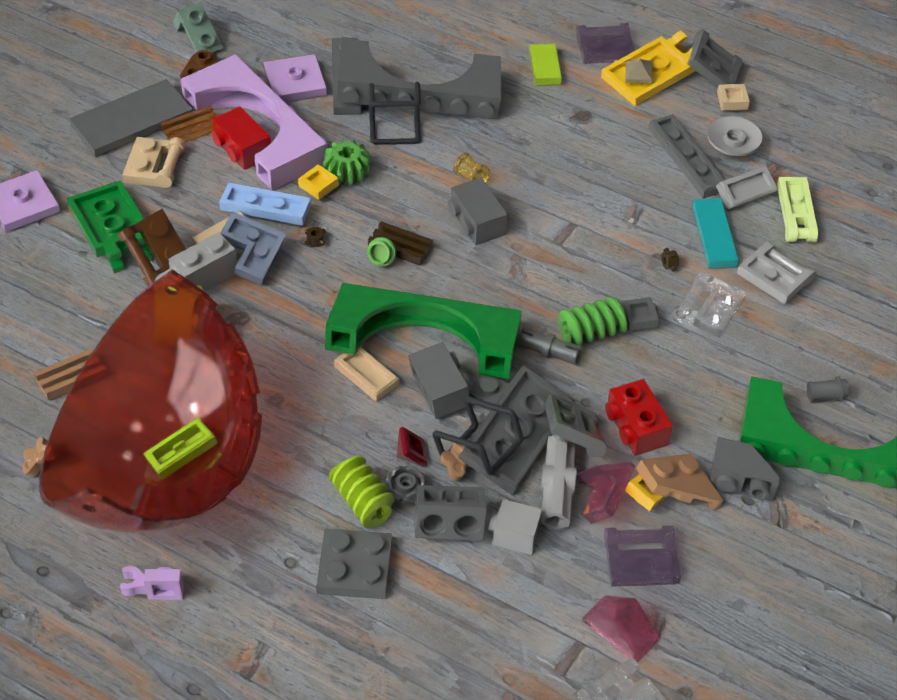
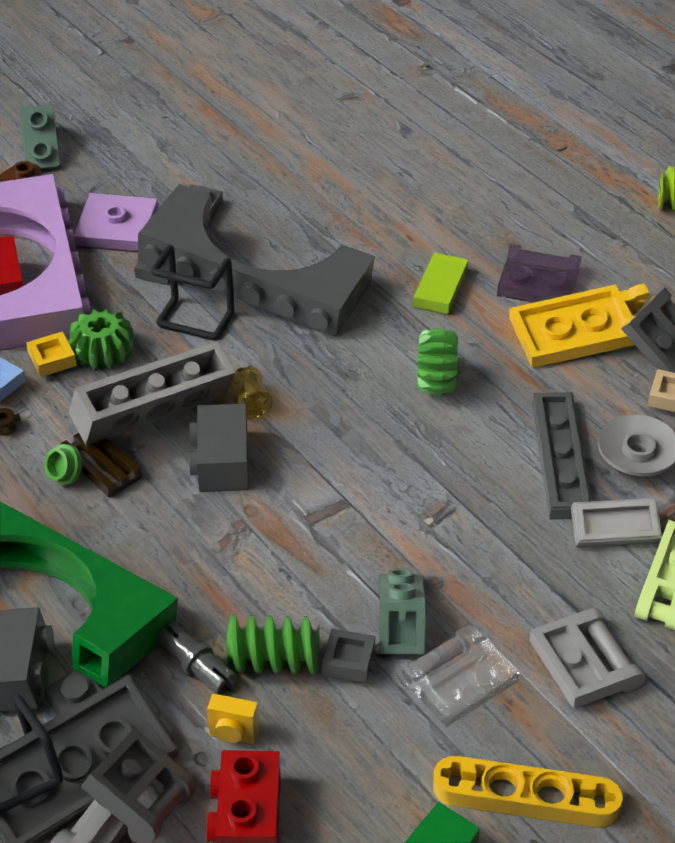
camera: 25 degrees right, 5 degrees down
(414, 187) = (151, 392): none -> light grey brick
(584, 116) = (437, 361): none -> bright green gear
(597, 371) = (233, 719): none -> yellow plate
(639, 71) = (554, 322): dark tan slope -> none
(660, 278) = (401, 612): none -> sand green bracket
(670, 259) = (443, 591): dark brown piece -> none
(714, 233) = (531, 573): teal tile -> none
(784, 352) = (525, 799): none -> yellow beam

